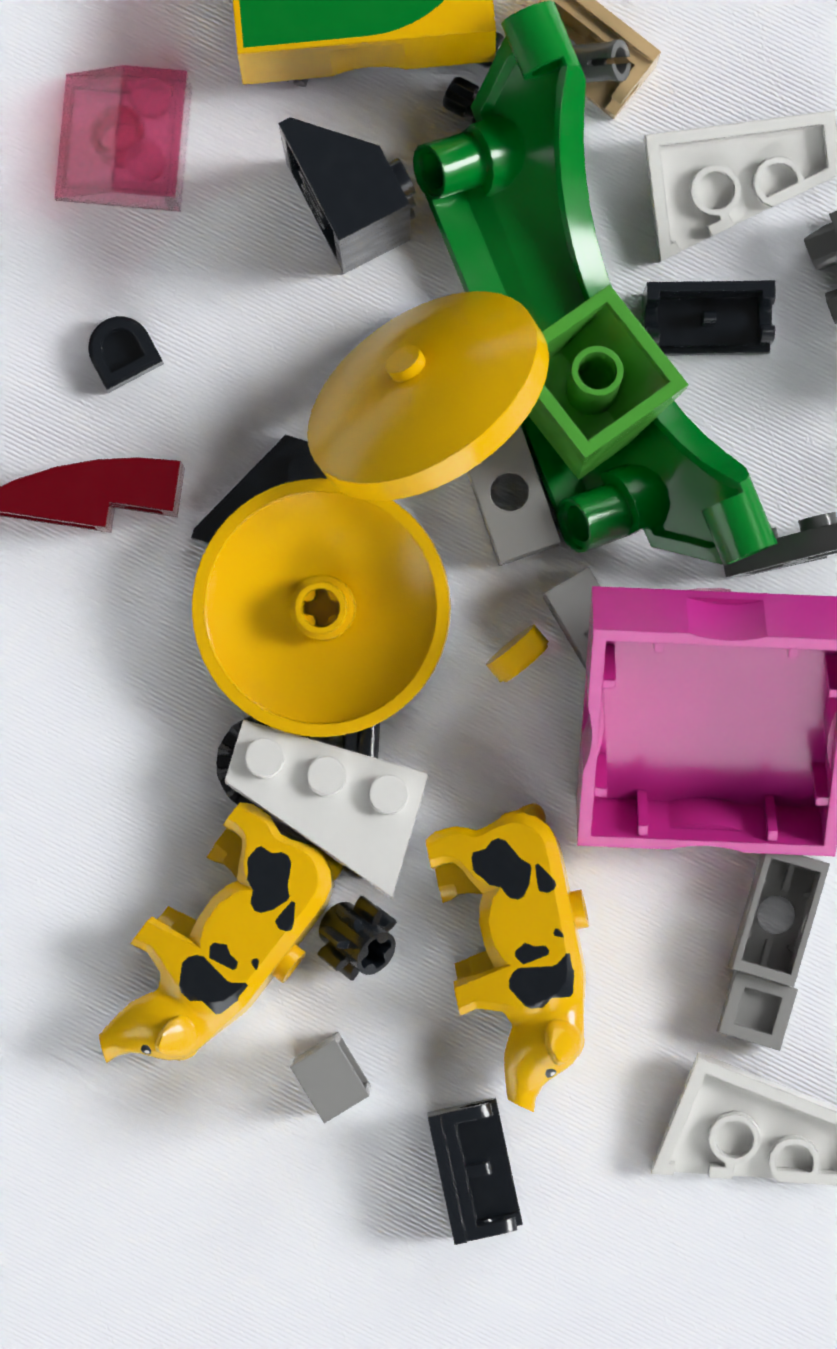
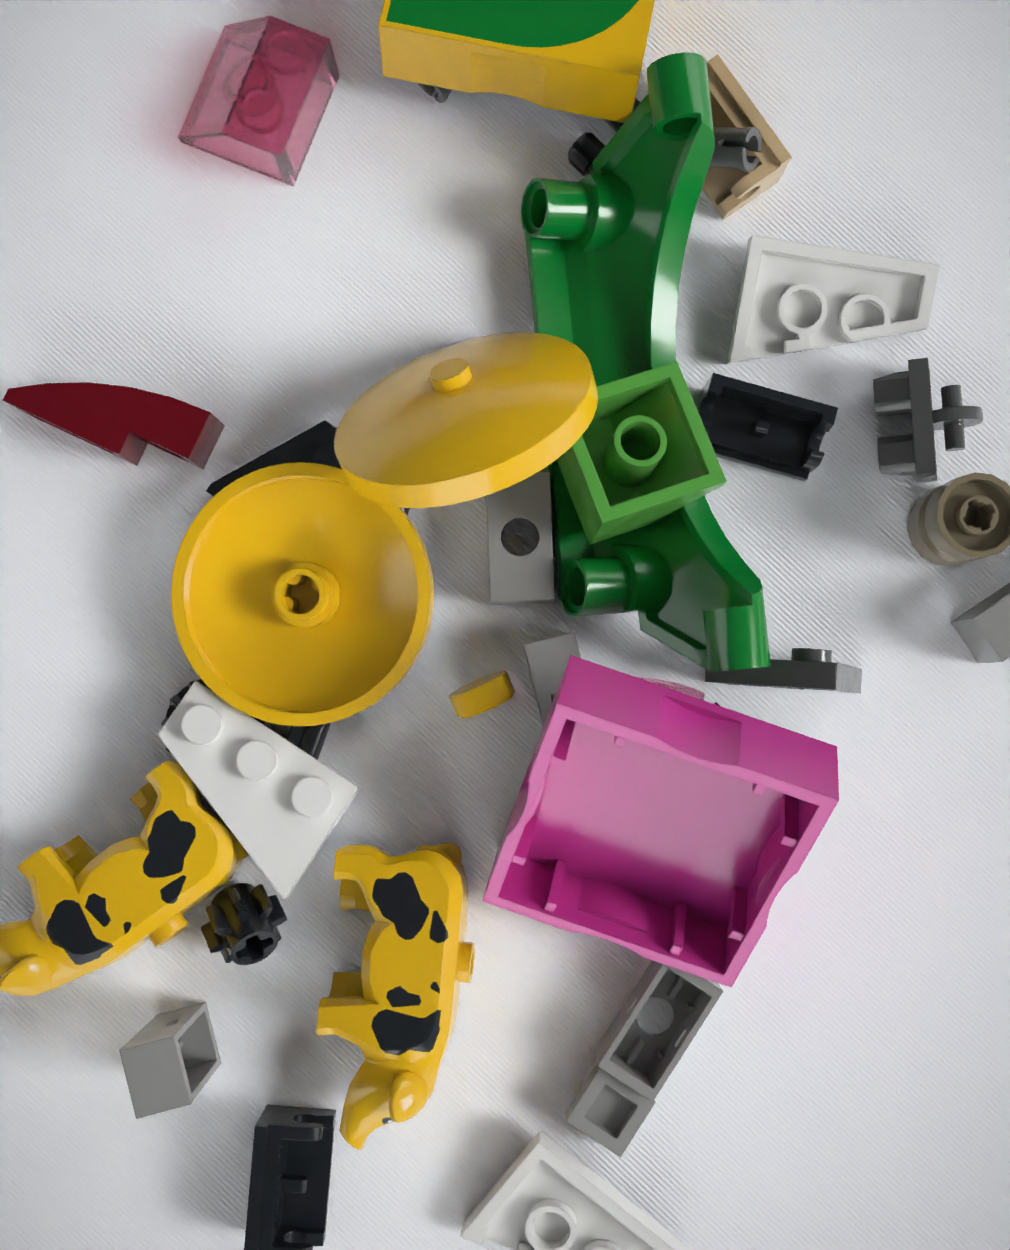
camera: 15 degrees right, 0 degrees up
(122, 351) = (196, 298): black tile -> none
(351, 191) = (453, 191): black slope -> none

